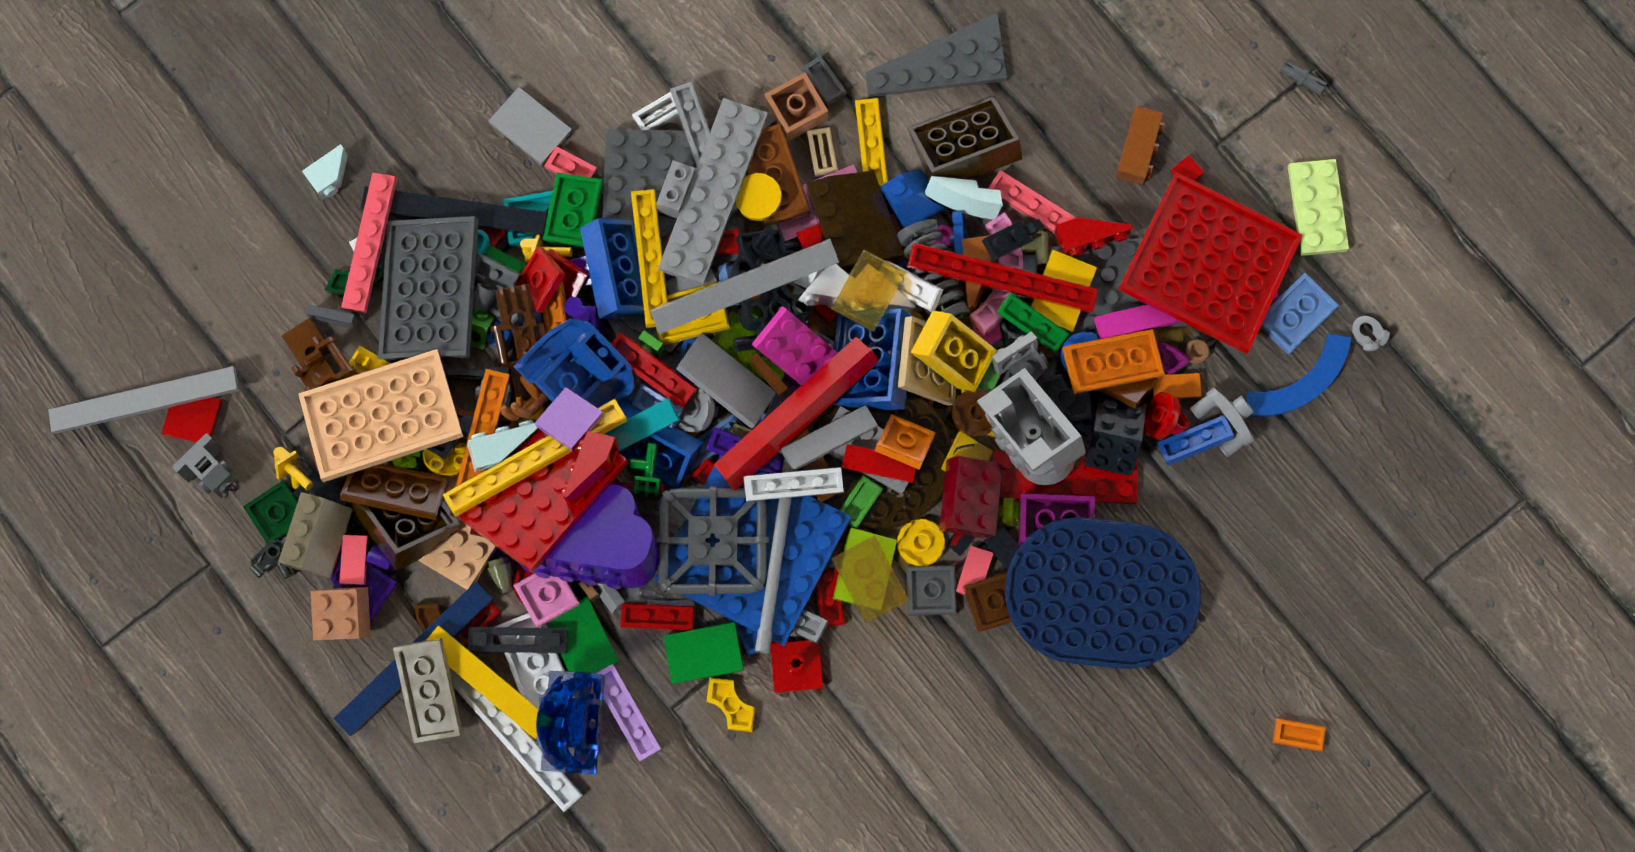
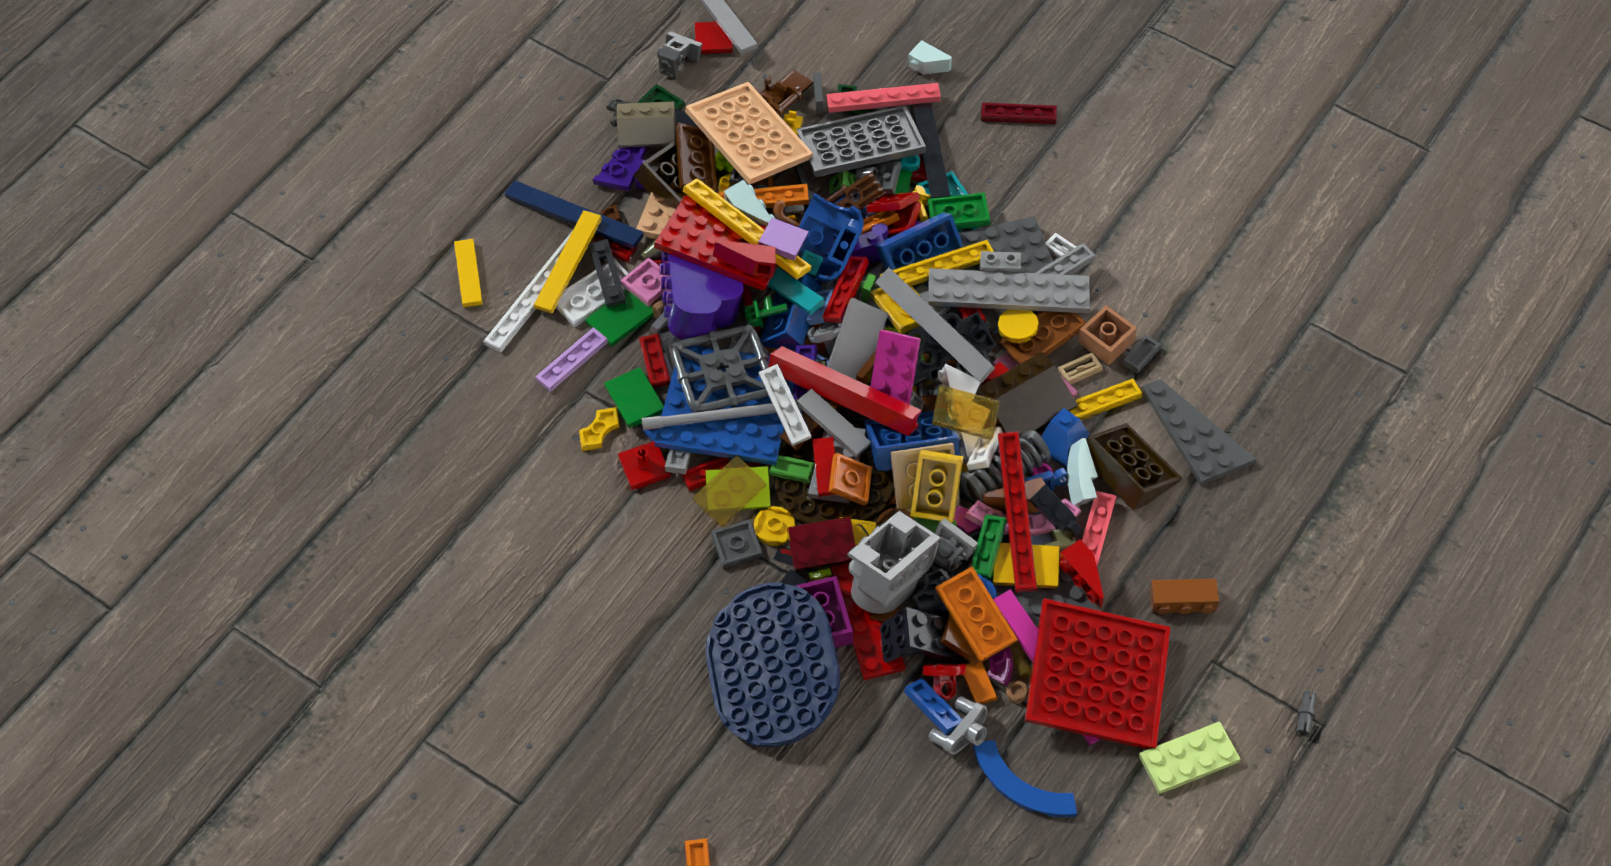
camera: 75 degrees right, 20 degrees down
(286, 464) = (692, 96): yellow arm -> none
(340, 613) = (592, 157): nougat brick -> none
(353, 560) = (628, 156): coral tile -> none
(428, 690) = (550, 225): dark tan plate -> none
(442, 96) = (1019, 113): none -> dark red tile
(453, 808) = (468, 273): none -> yellow tile
(530, 126) = (1018, 172): light grey tile -> none
(564, 162) = (996, 203): coral plate -> none
(570, 722) = (550, 316): clear blue piece -> none
(599, 395) = (813, 260): none -> teal tile
(975, 567) = (761, 570): coral tile -> none
(988, 602) = (735, 581): reddish brown tile -> none
(1188, 168) = (1178, 642): red tile -> none
(1297, 313) = (1083, 764): medium blue tile -> none
(1381, 335) = (1091, 837): light grey piece -> none

